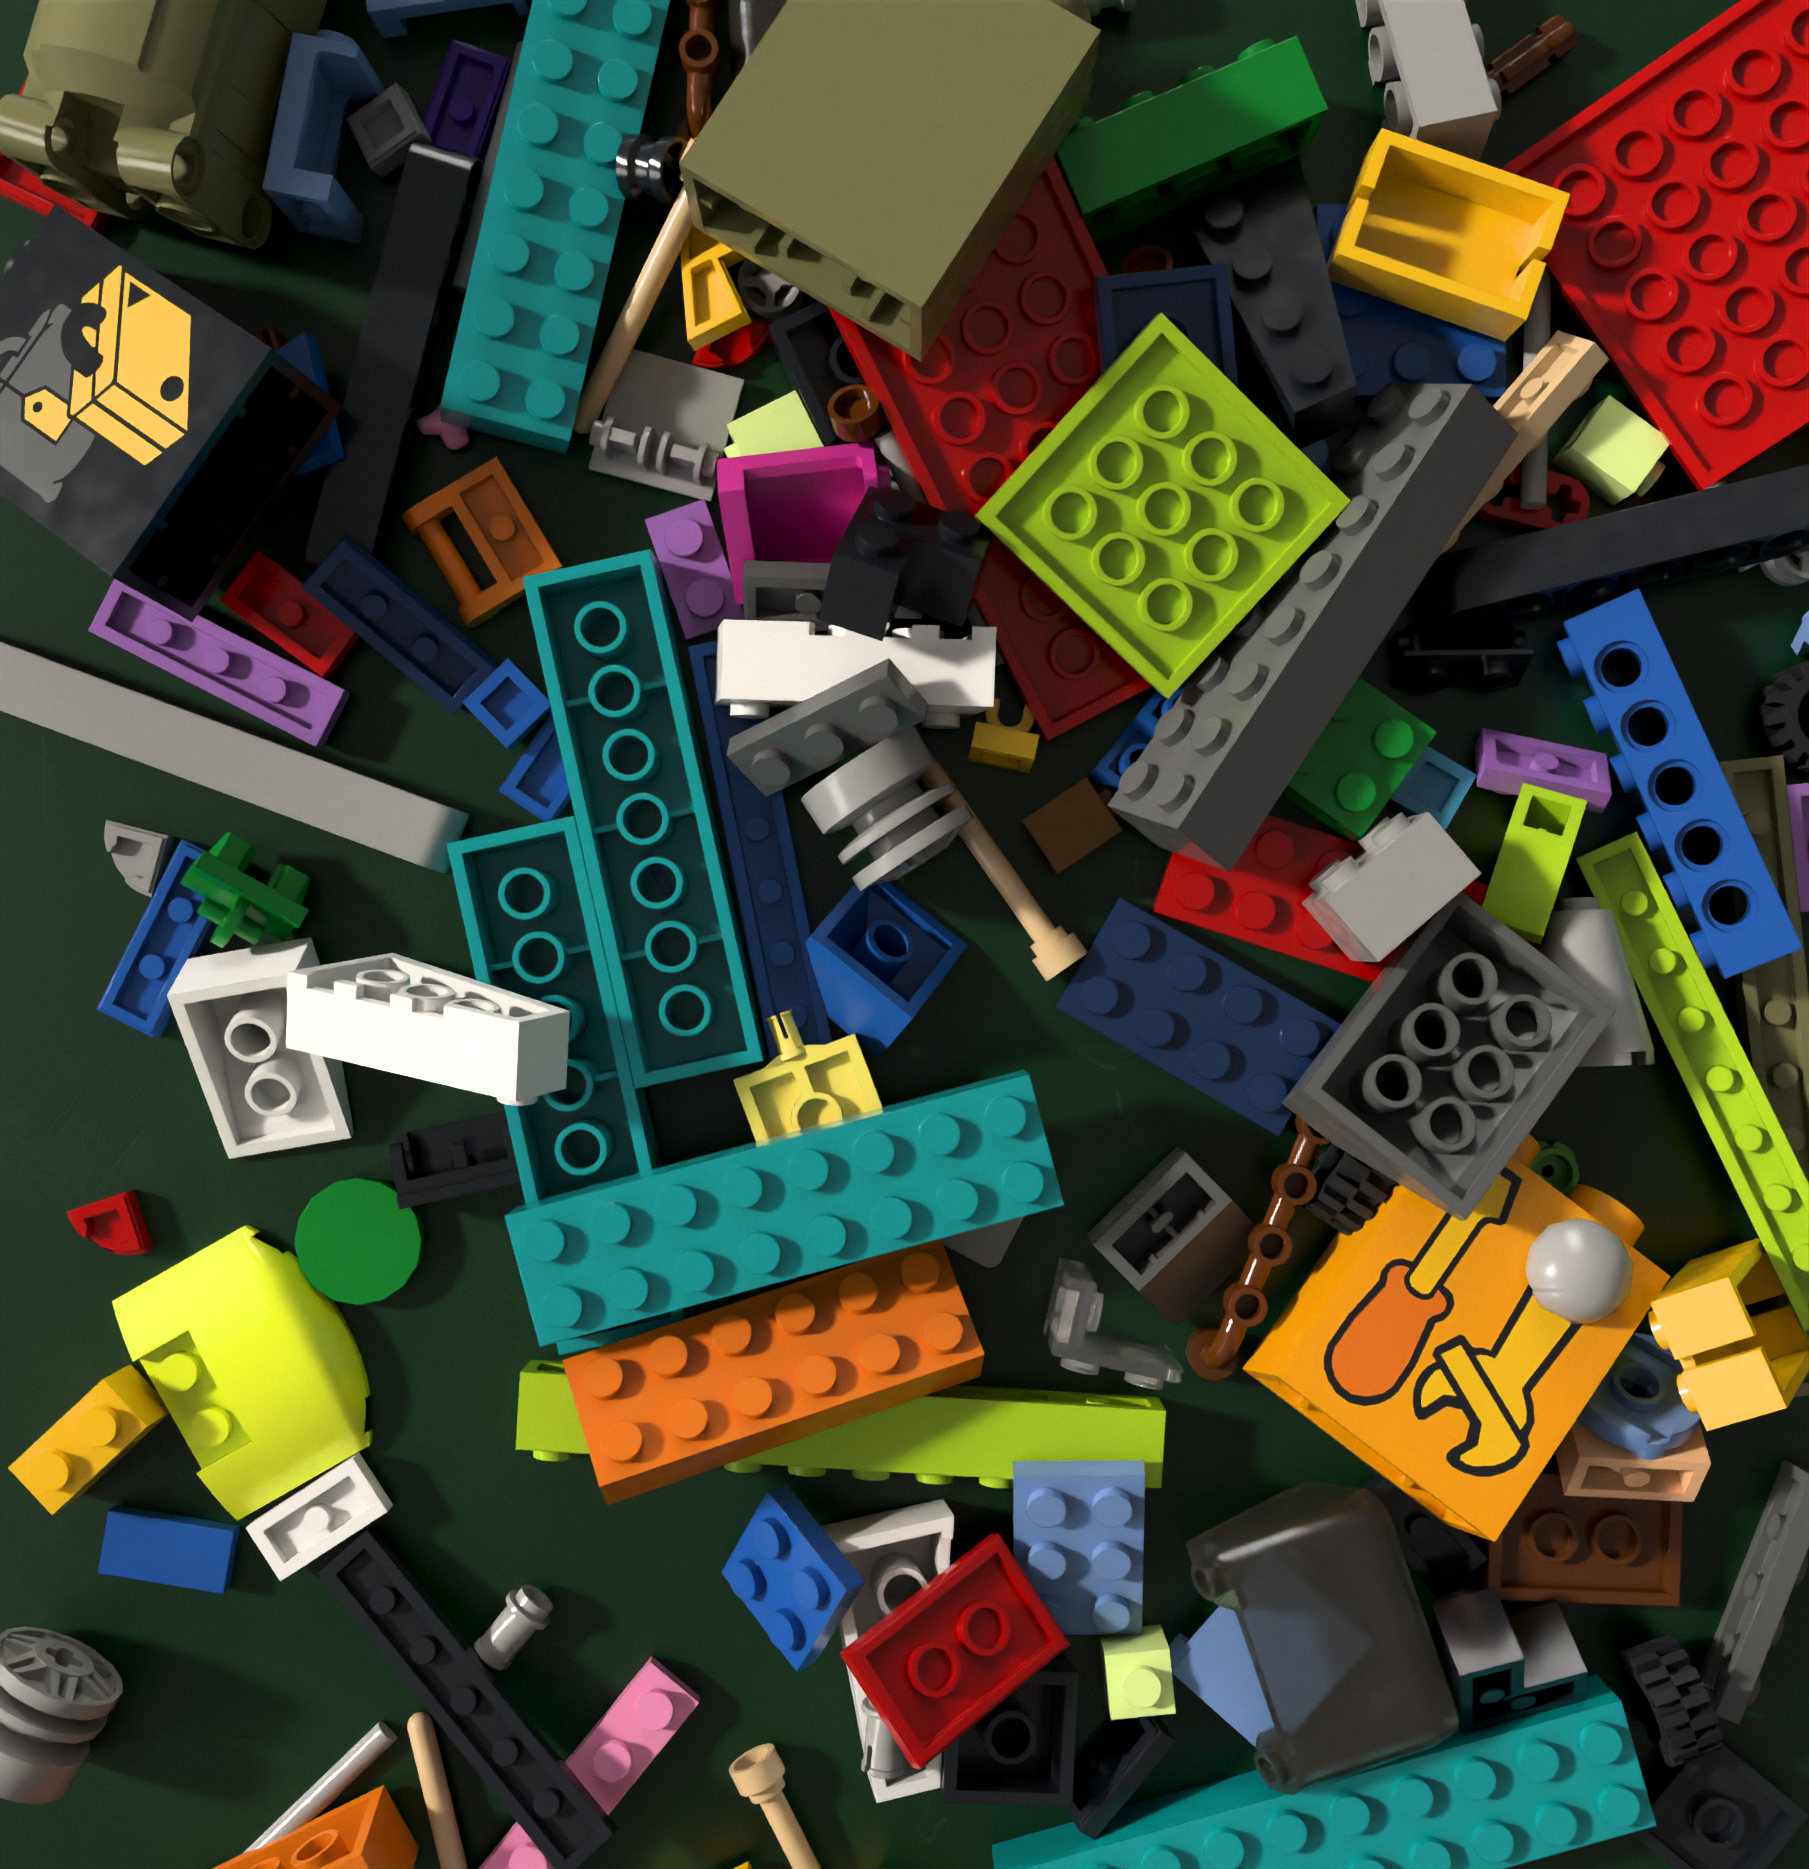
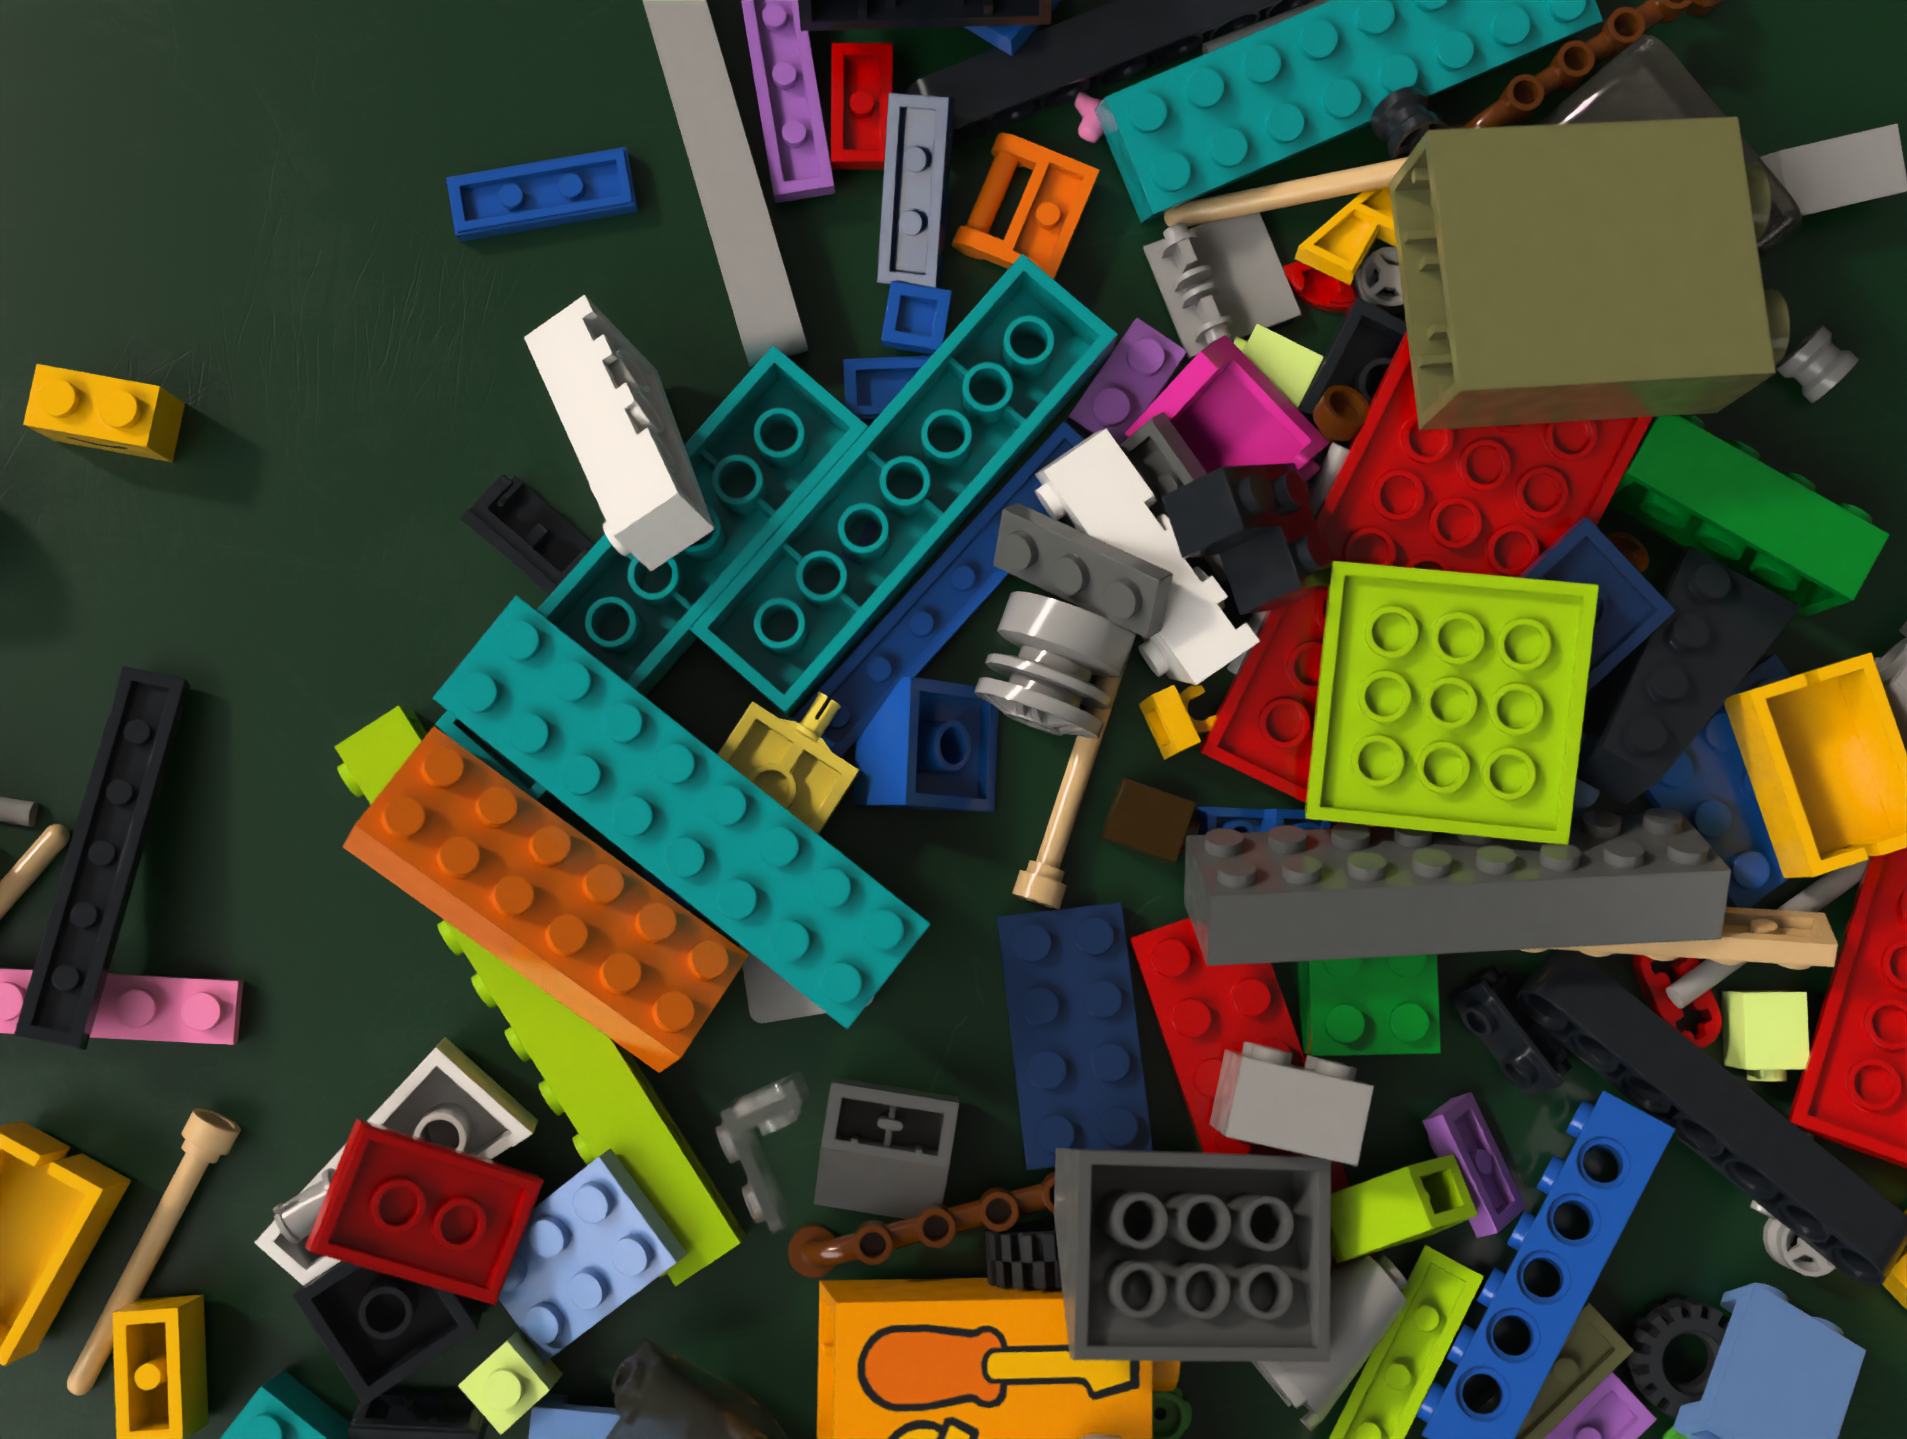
camera: 45 degrees right, 5 degrees down
(114, 1224) = (287, 311): red tile -> none
(138, 854) = (589, 123): light grey tile -> none
(169, 1549) = (58, 538): blue tile -> none
(235, 1033) = (476, 341): white slope -> none
(241, 902) = (611, 224): green hips -> none
(250, 1368) = (248, 497): neon yellow slope -> none
(319, 1516) = (169, 635): white plate -> none
(358, 1241) = (410, 508): green tile -> none
(524, 1614) = (190, 852): light grey pin -> none
(792, 1577) = (389, 1040): blue plate -> none
(1433, 786) = (1398, 1085): dark azure plate -> none

